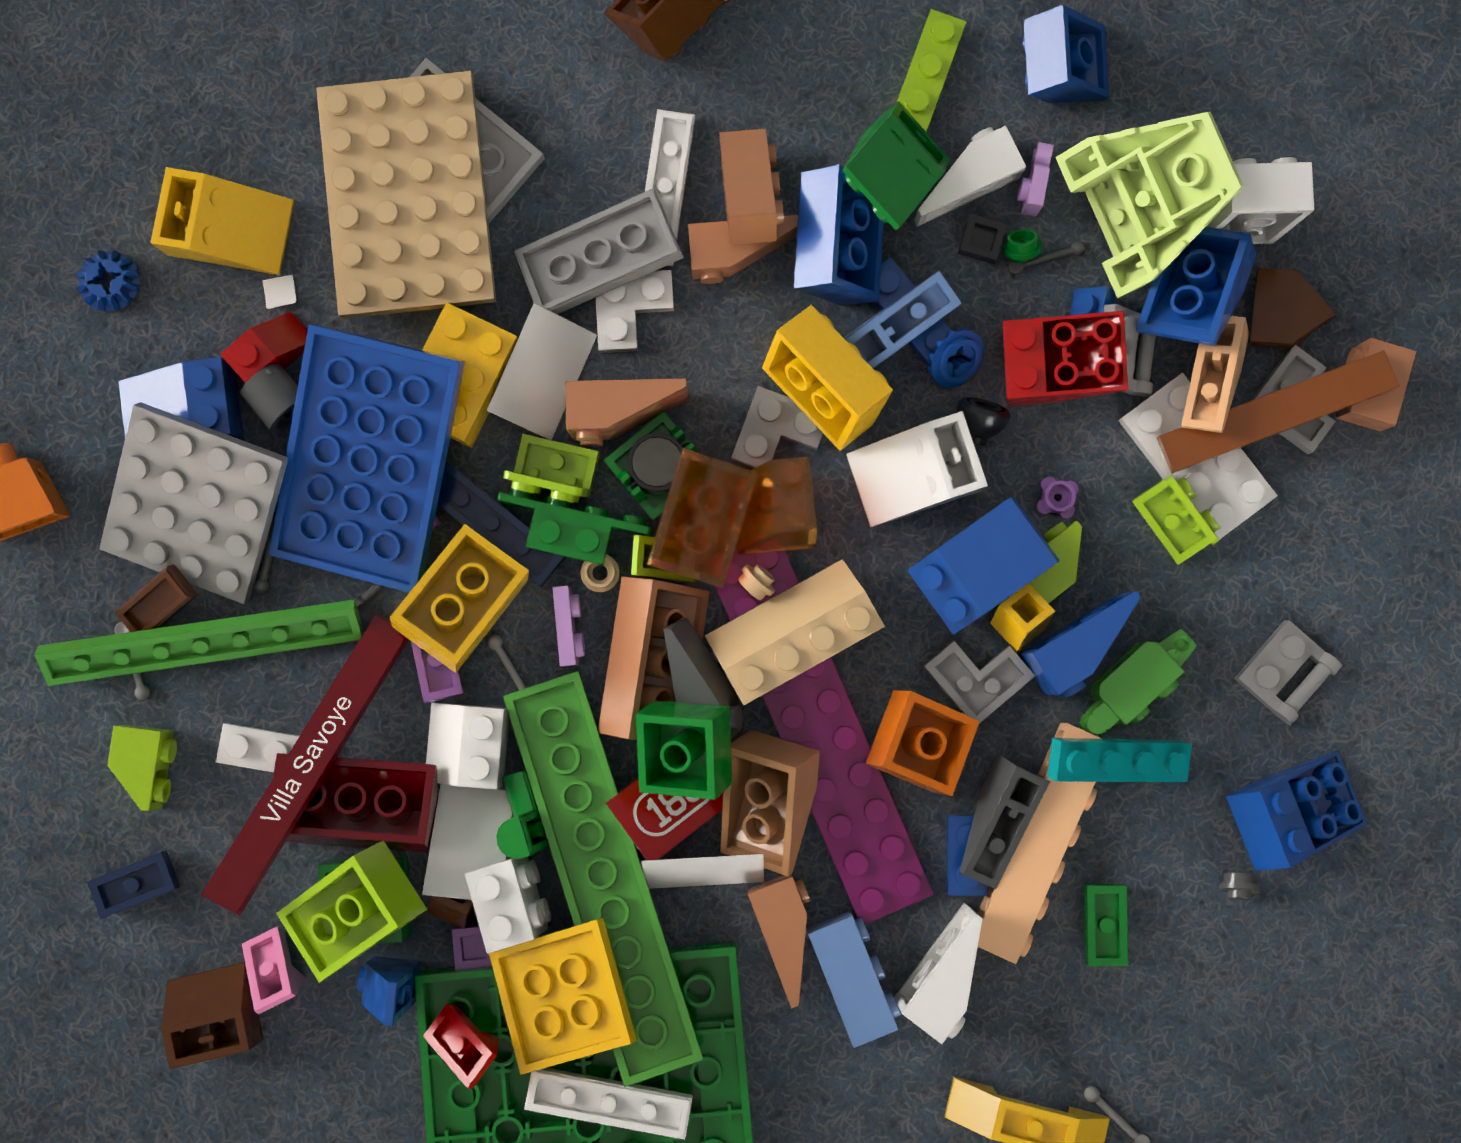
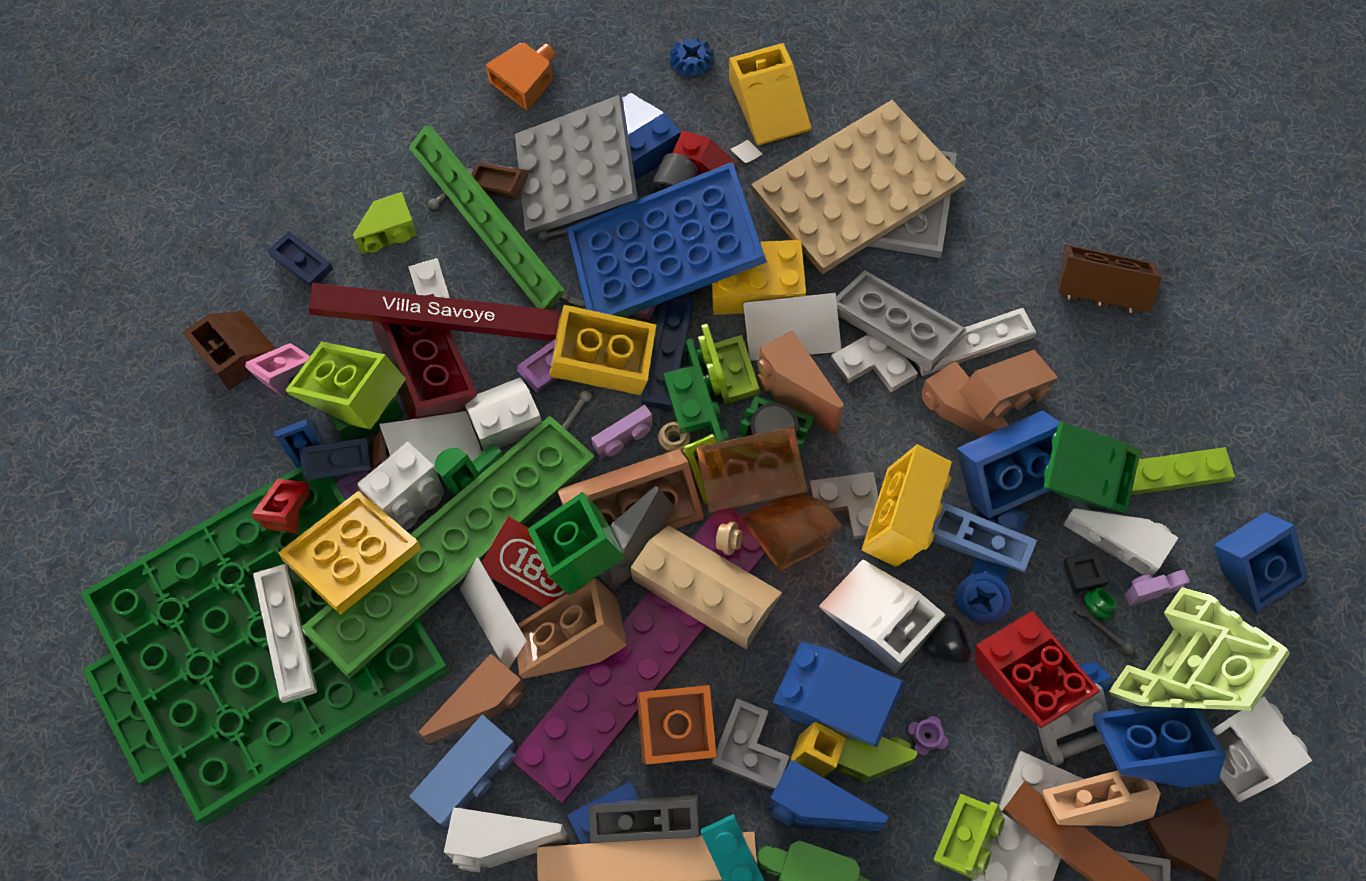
camera: 65 degrees right, 20 degrees down
(434, 961) = (334, 459): none -> dark blue plate

